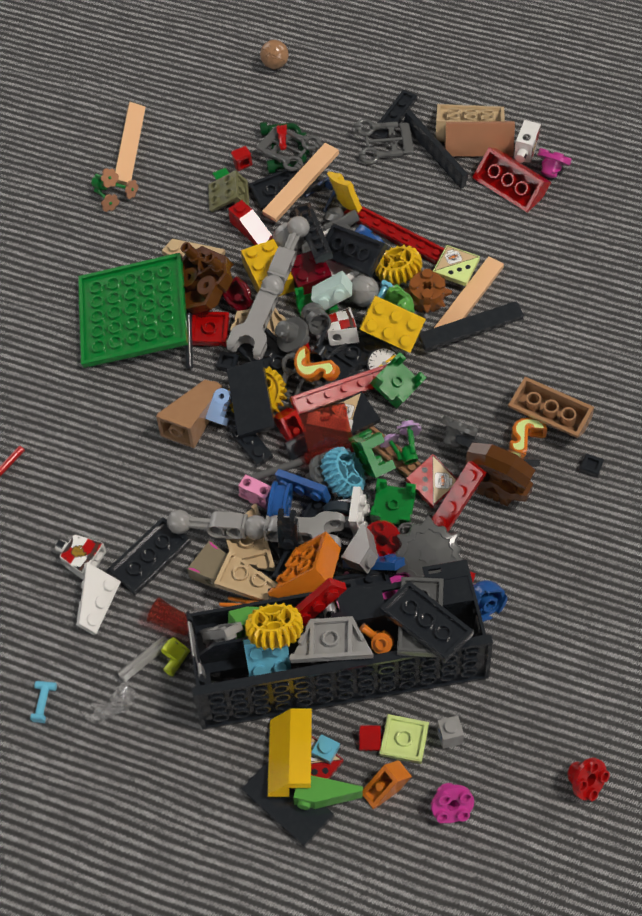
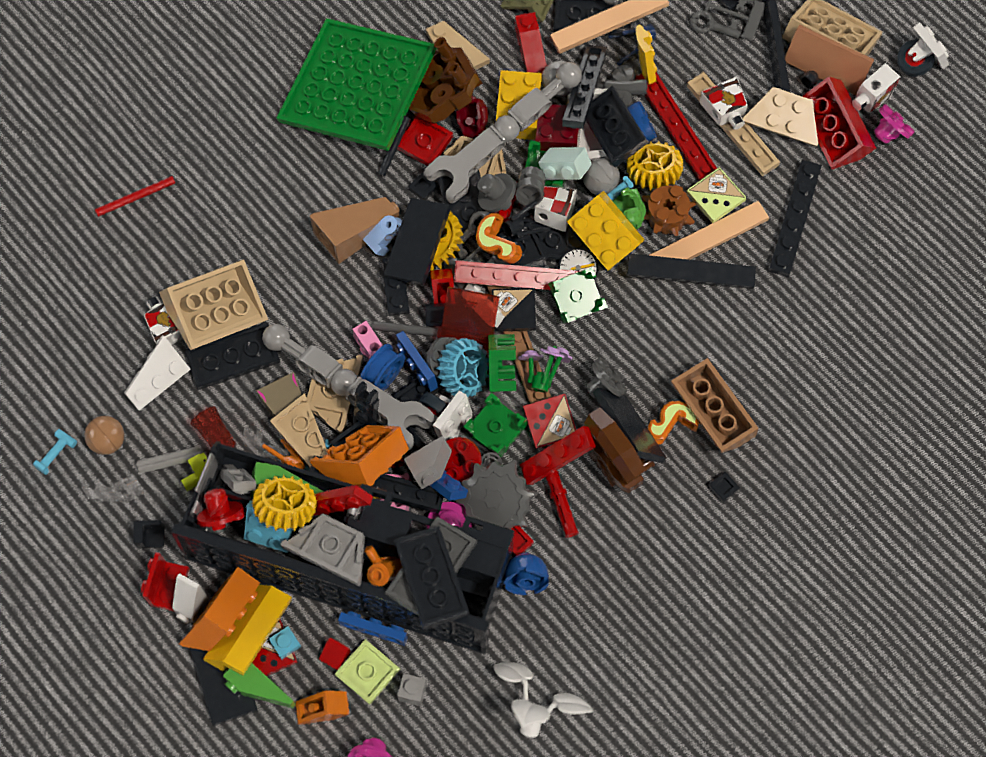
camera: 25 degrees right, 10 degrees up
(79, 664) = (104, 435): none -> medium nougat piece
(114, 520) = (214, 304): none -> tan slope
(161, 723) = (149, 534): none -> black panel
(199, 755) = (161, 582): none -> red bracket
(221, 660) = (219, 510): none -> red plate
(228, 752) = (188, 599): none -> white slope
(261, 749) = (222, 611): none -> orange wedge
(389, 702) = (373, 627): none -> blue plate
(424, 199) = (725, 103): none -> torso
(436, 213) = (744, 137): none -> tan plate
(471, 530) = (563, 509): none -> red pin
(472, 159) = (809, 79): none -> black hinge
(472, 189) = (785, 115): none -> tan wing
(522, 257) = (795, 218): none -> black plate
(543, 104) = (918, 55): none -> plate
(558, 694) = (530, 714): none -> white plant

